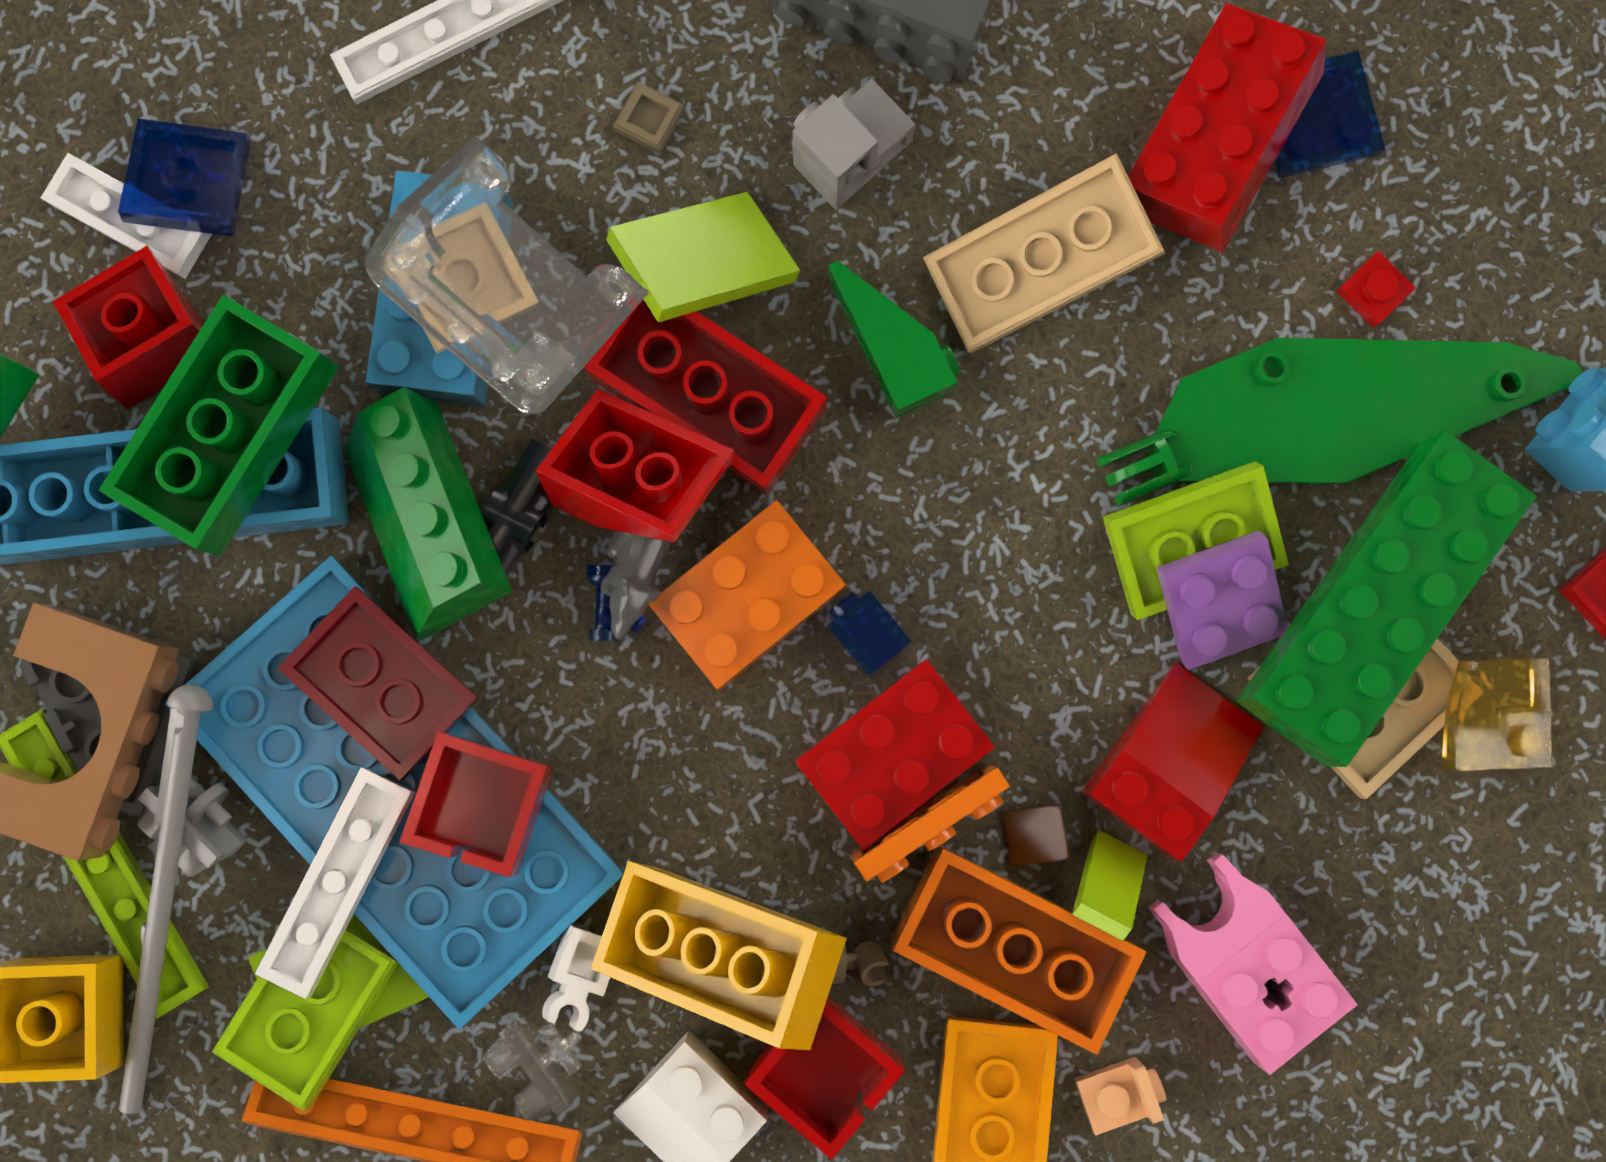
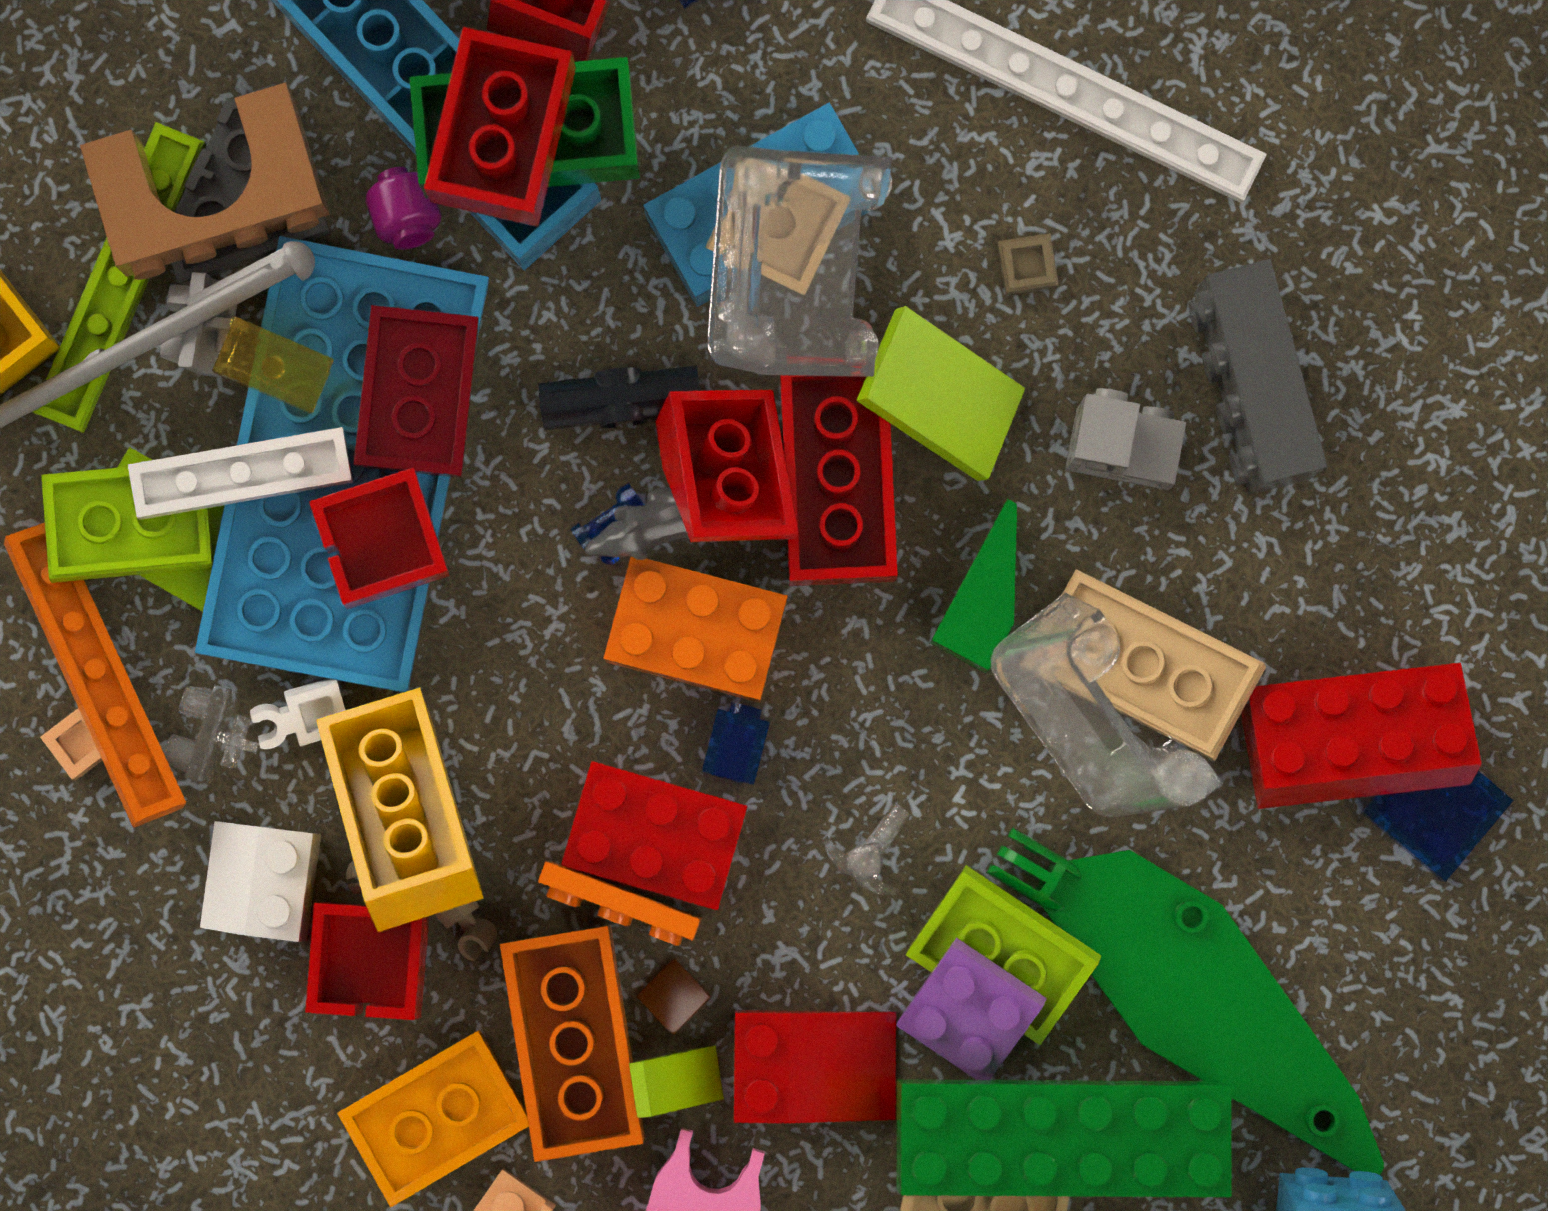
camera: 50 degrees right, 0 degrees up
(192, 439) = (500, 126): none -> red brick
(221, 585) = (400, 209): none -> magenta head
(264, 786) = (273, 365): none -> clear yellow panel
(423, 512) = (574, 326): green slope -> none
(1015, 331) = (1051, 679): none -> clear windscreen
(1041, 592) = (867, 859): none -> clear plant
(1376, 289) = (1323, 957): red plate -> none

